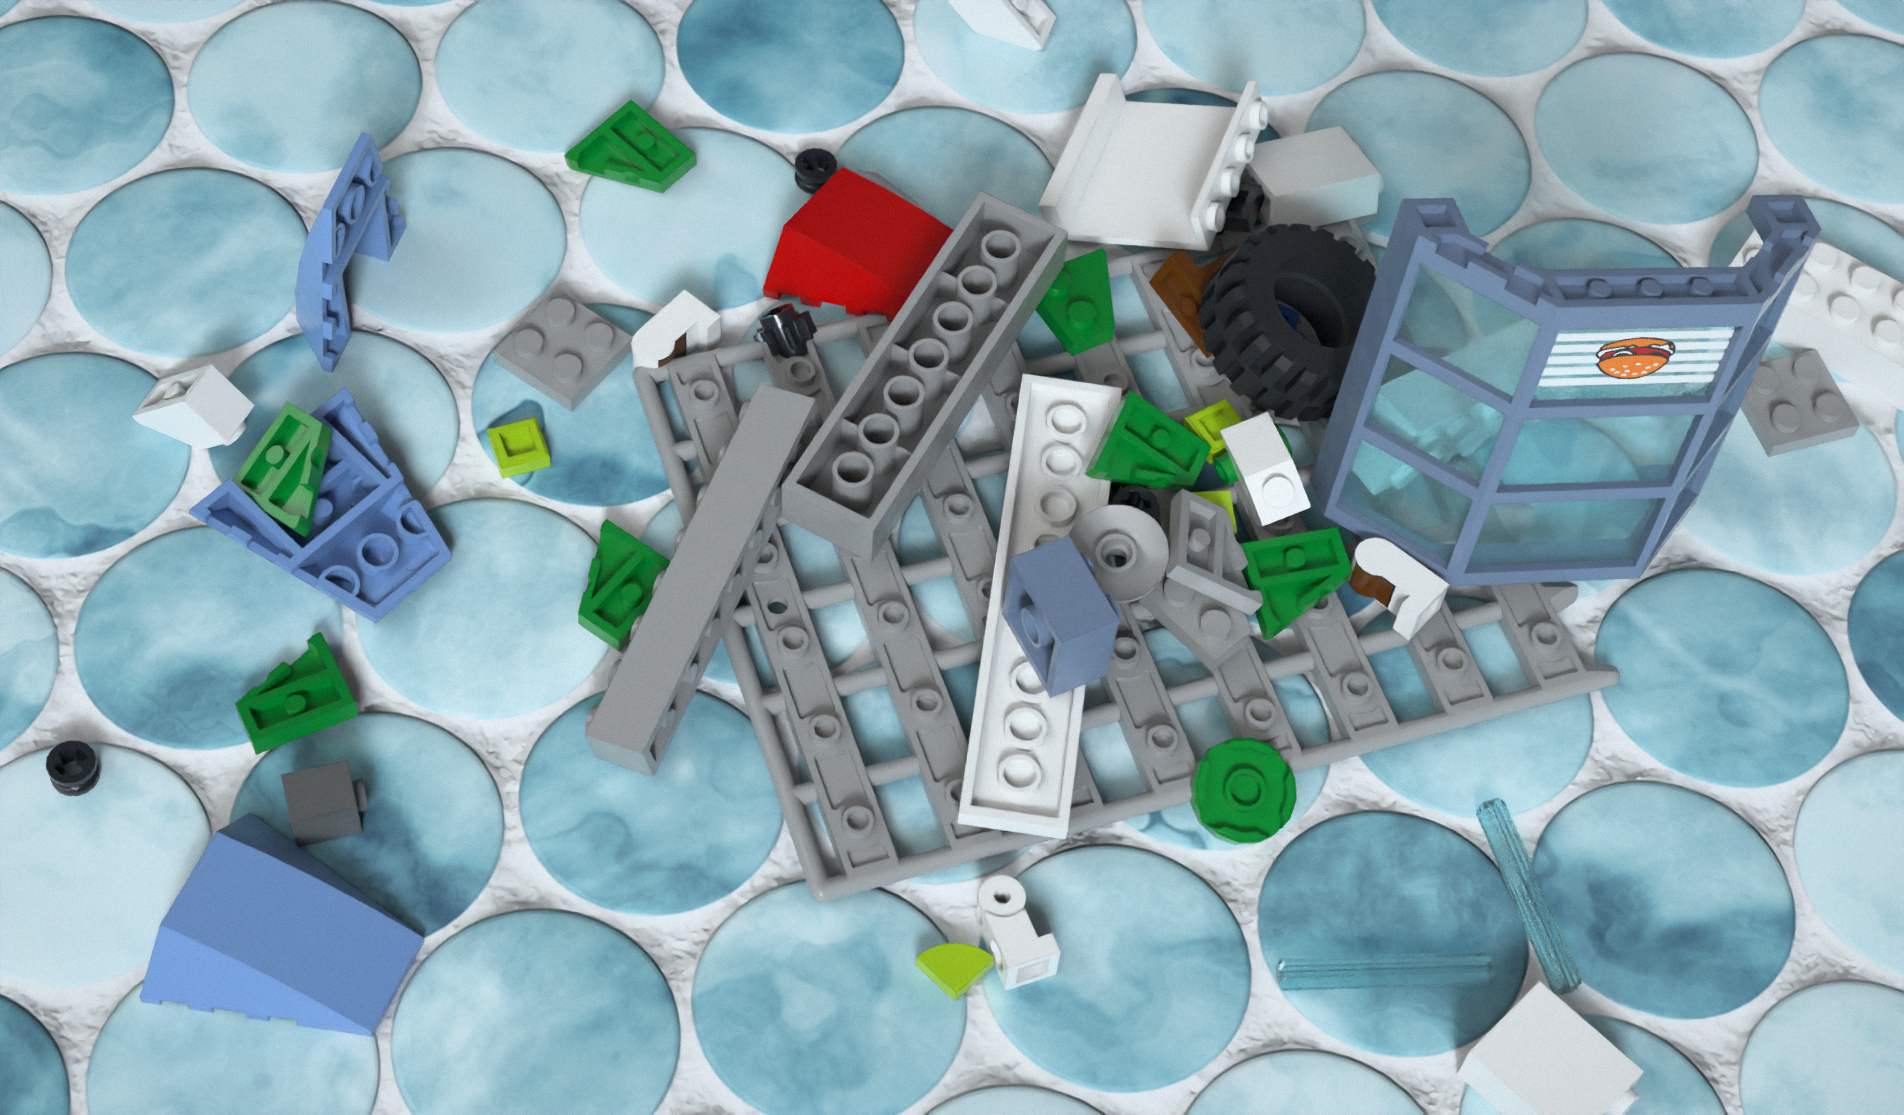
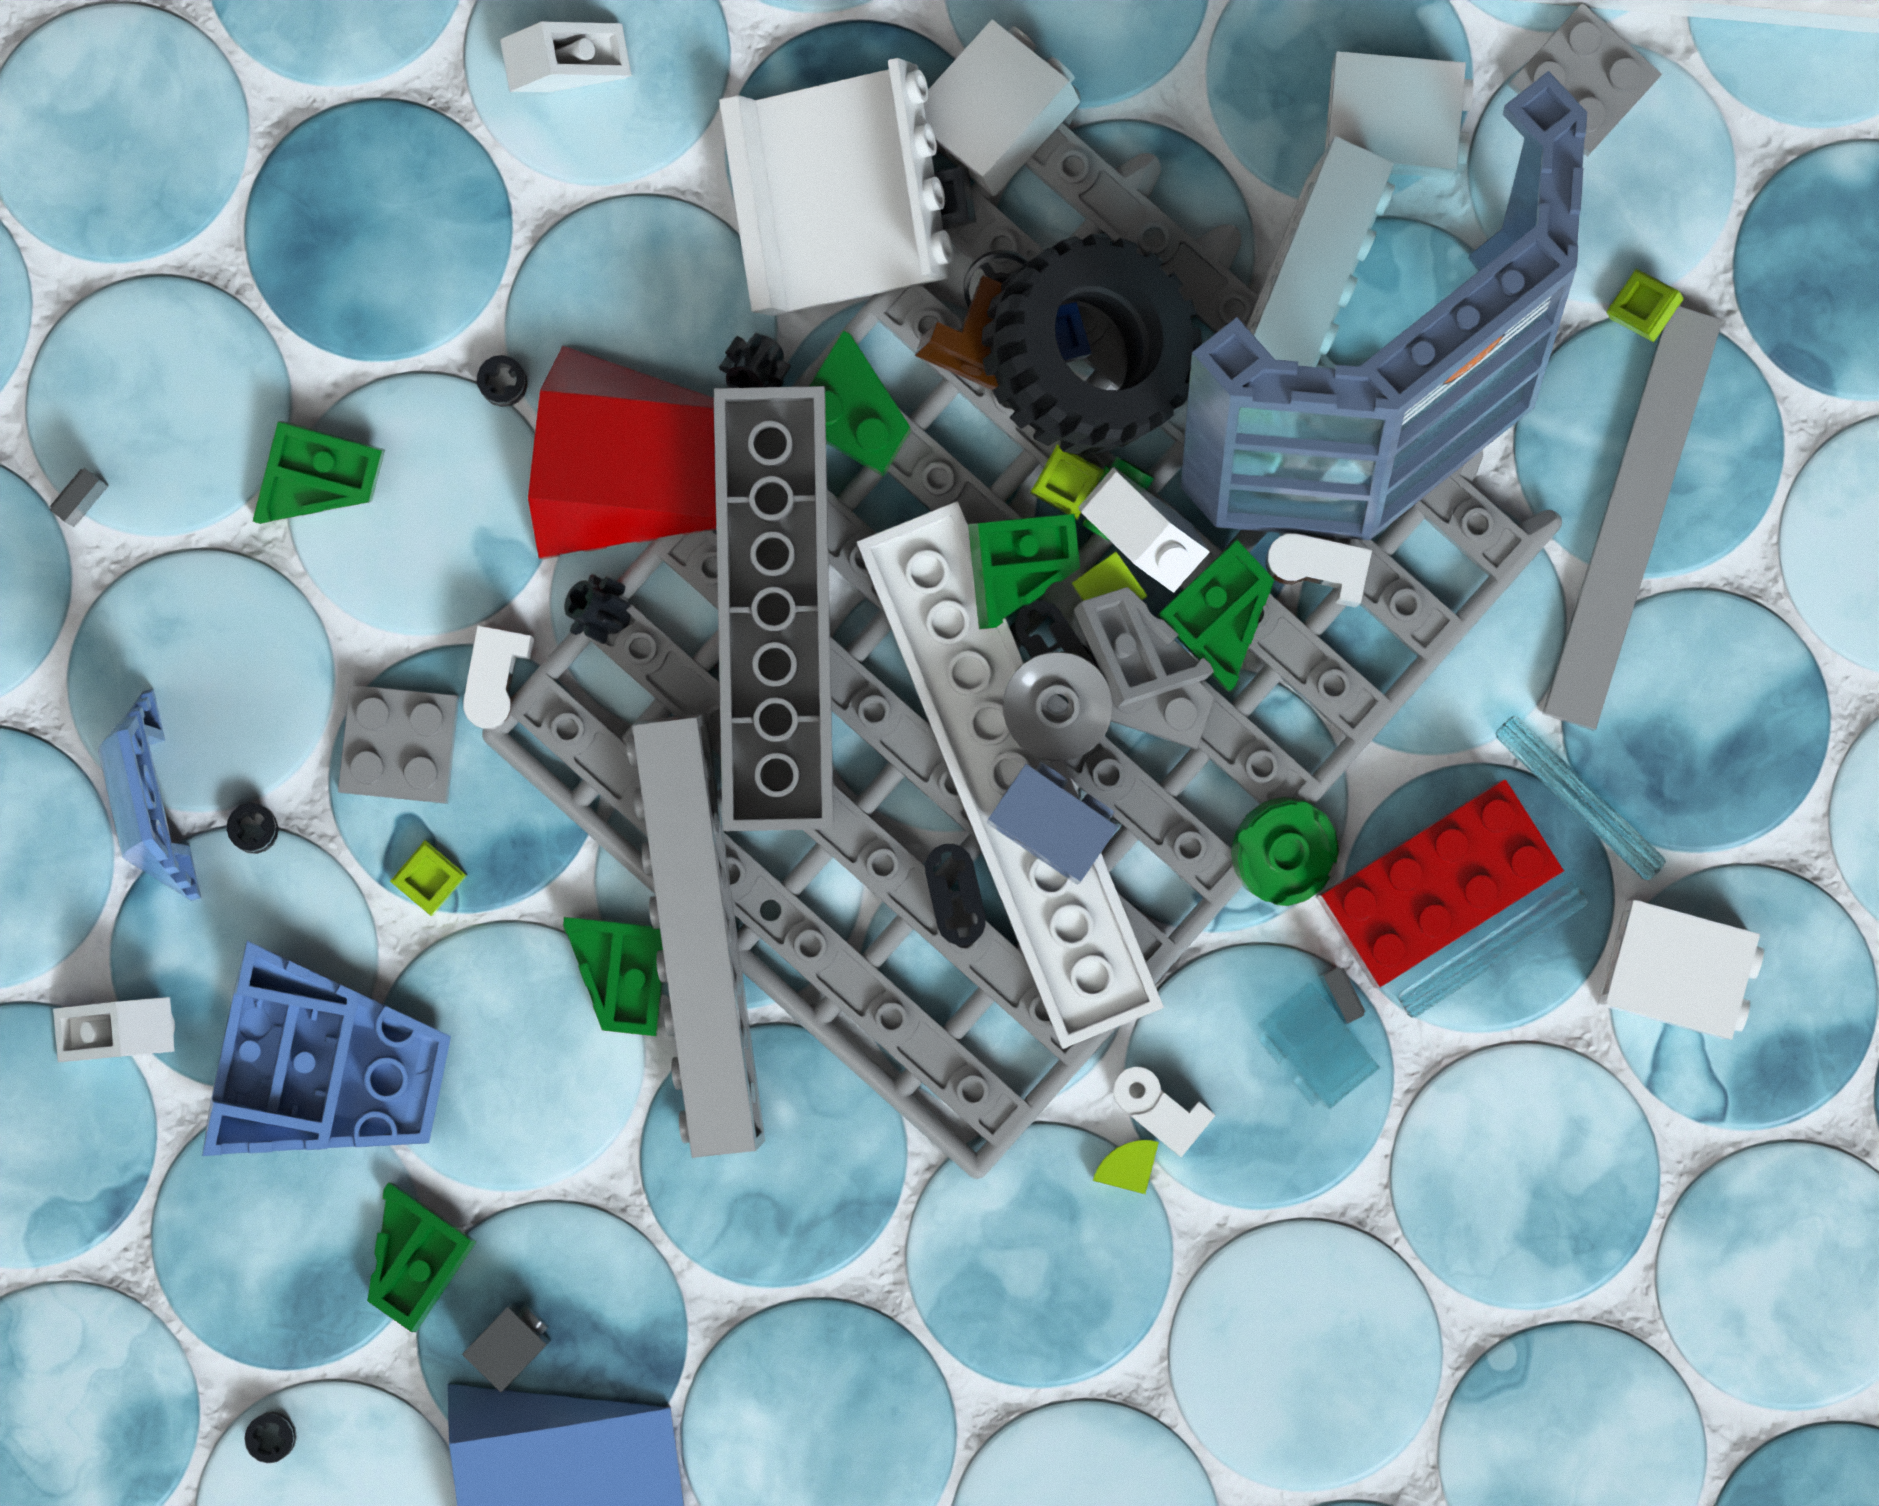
camera: 25 degrees left, 30 degrees up
(287, 468) = (255, 1059): green wing -> none
(404, 356) = (236, 831): none -> black bush
(449, 75) = (78, 497): none -> dark grey tile
(931, 657) = (968, 892): none -> black beam
(1183, 957) = (1316, 1047): none -> clear light blue brick
(1229, 928) = (1342, 994): none -> dark grey tile
(1366, 886) = (1440, 883): none -> red brick
(1677, 716) = (1632, 518): none -> light grey tile
(1768, 567) = (1644, 305): none -> lime tile

